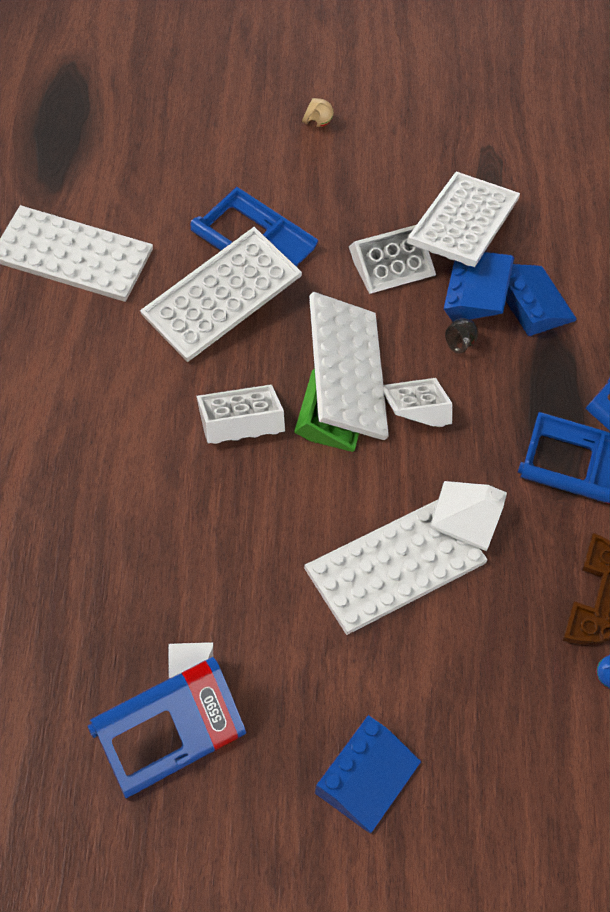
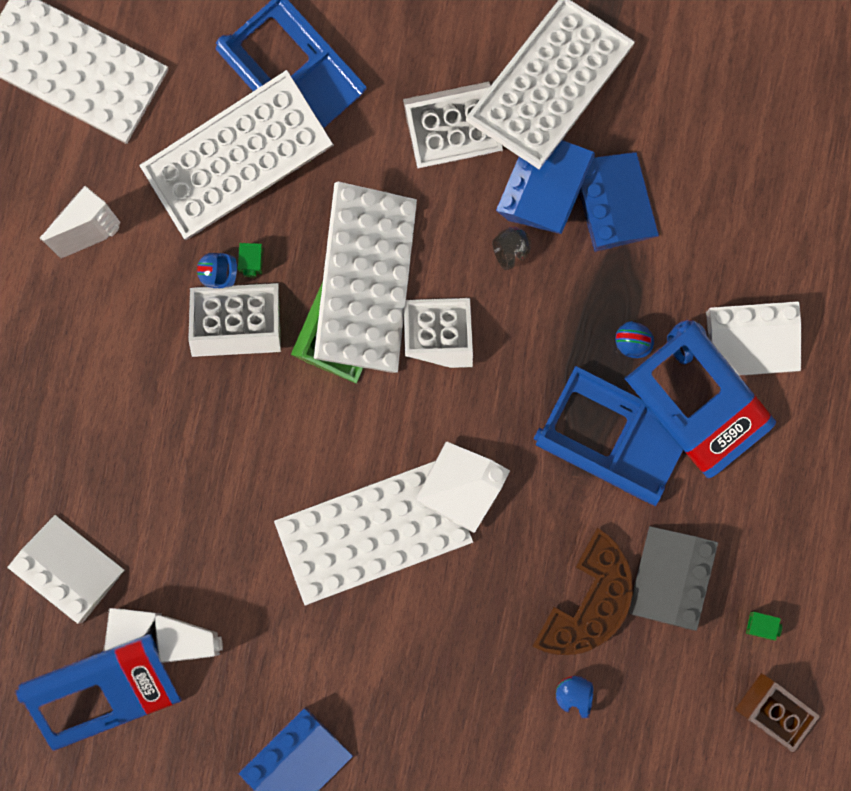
camera: 15 degrees right, 25 degrees up
(100, 344) = (81, 225): none -> white slope
(116, 631) = (66, 569): none -> white slope
(215, 375) = (213, 270): none -> blue helmet
(245, 366) = (250, 259): none -> green brick
(246, 670) = (184, 640): none -> white slope
(580, 388) = (634, 340): none -> blue helmet

